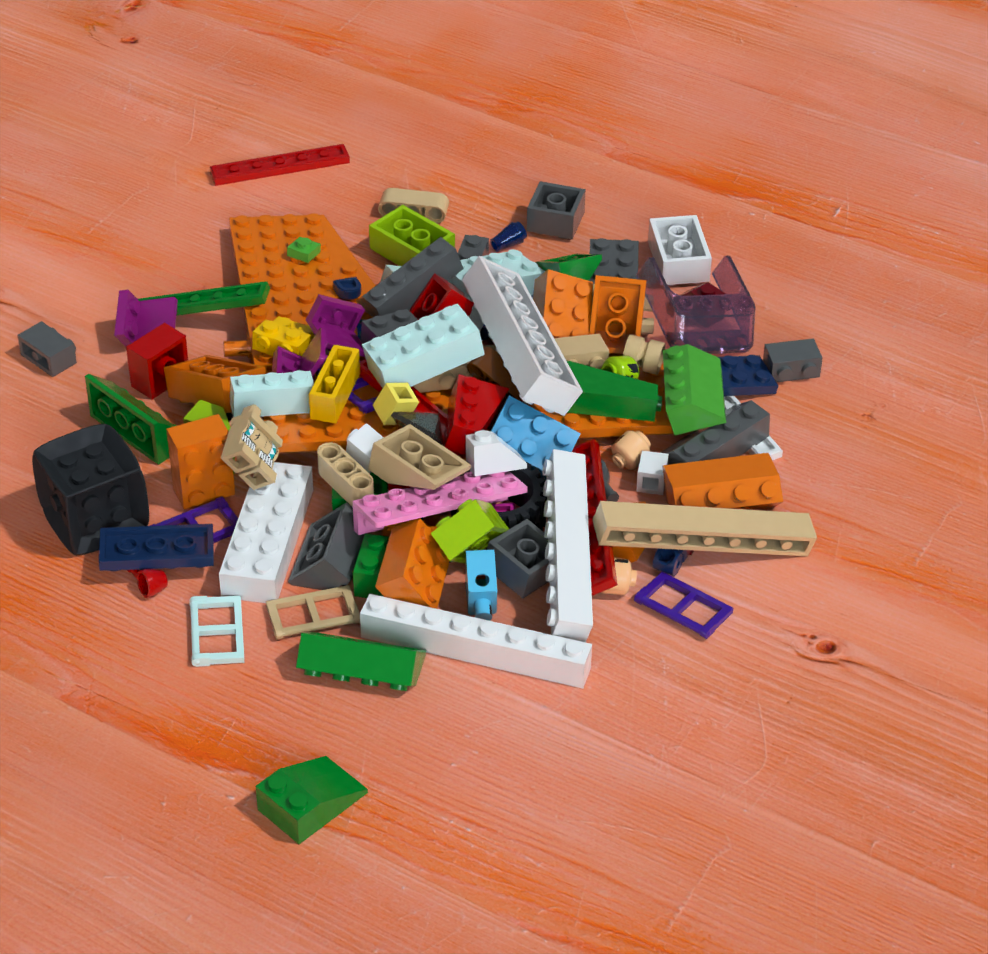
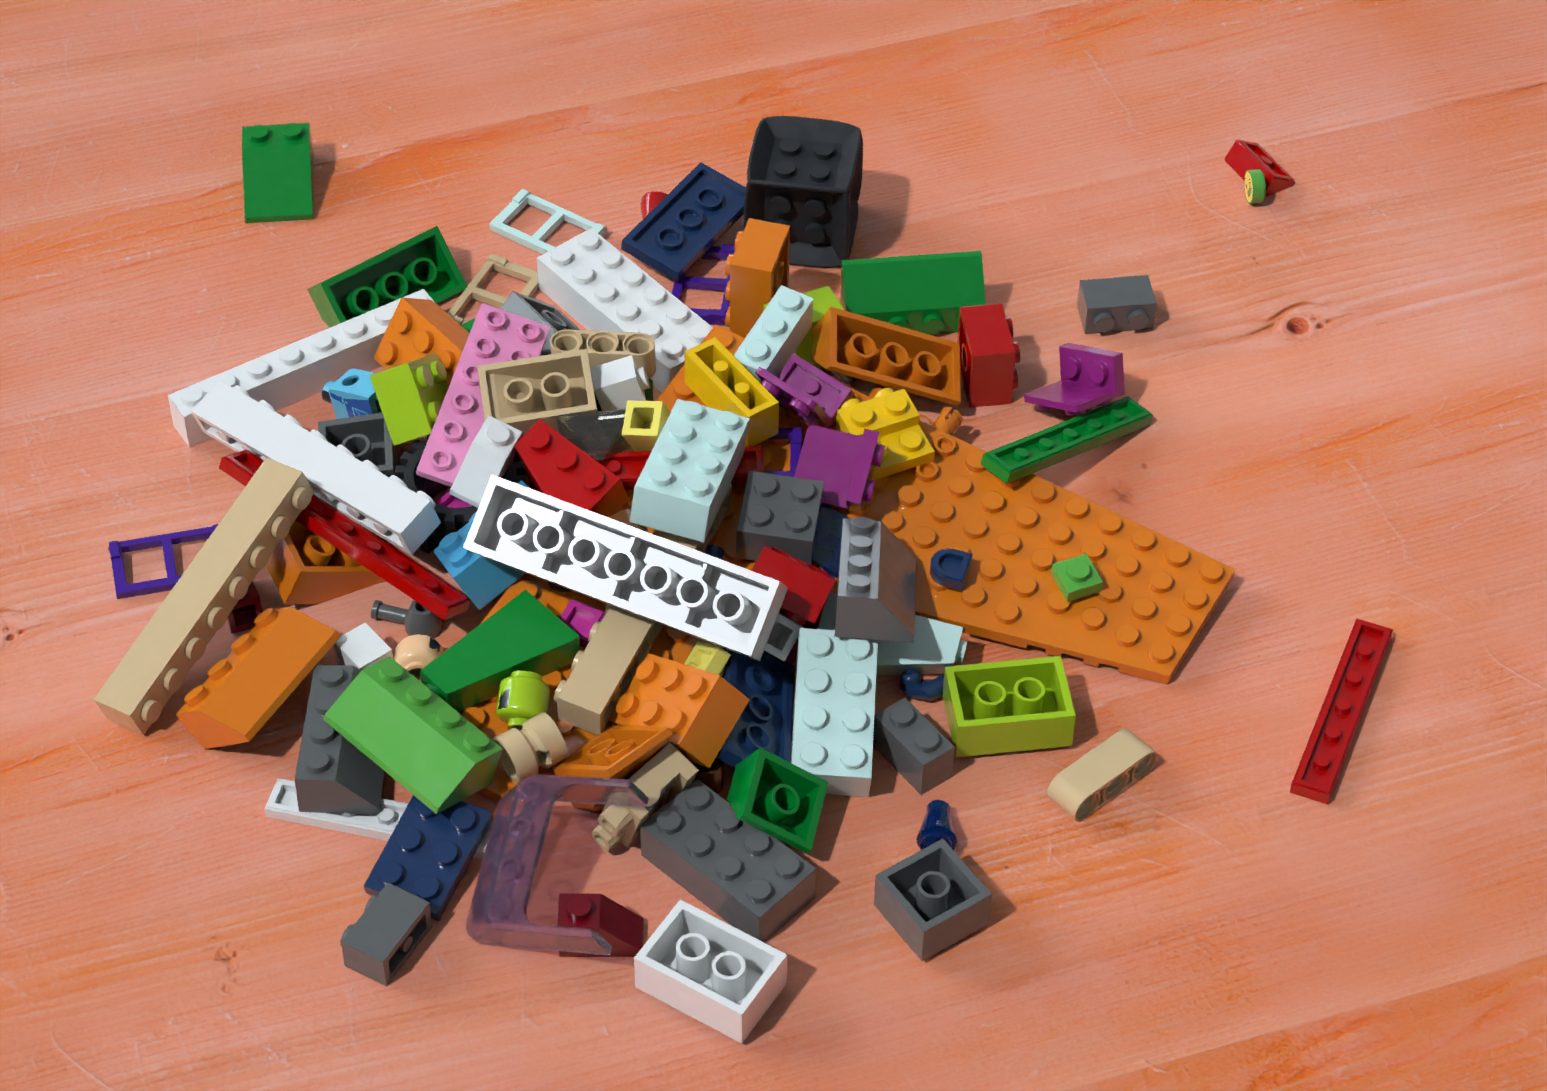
camera: 130 degrees right, 5 degrees up
(255, 447) = (702, 284): tan hips -> none

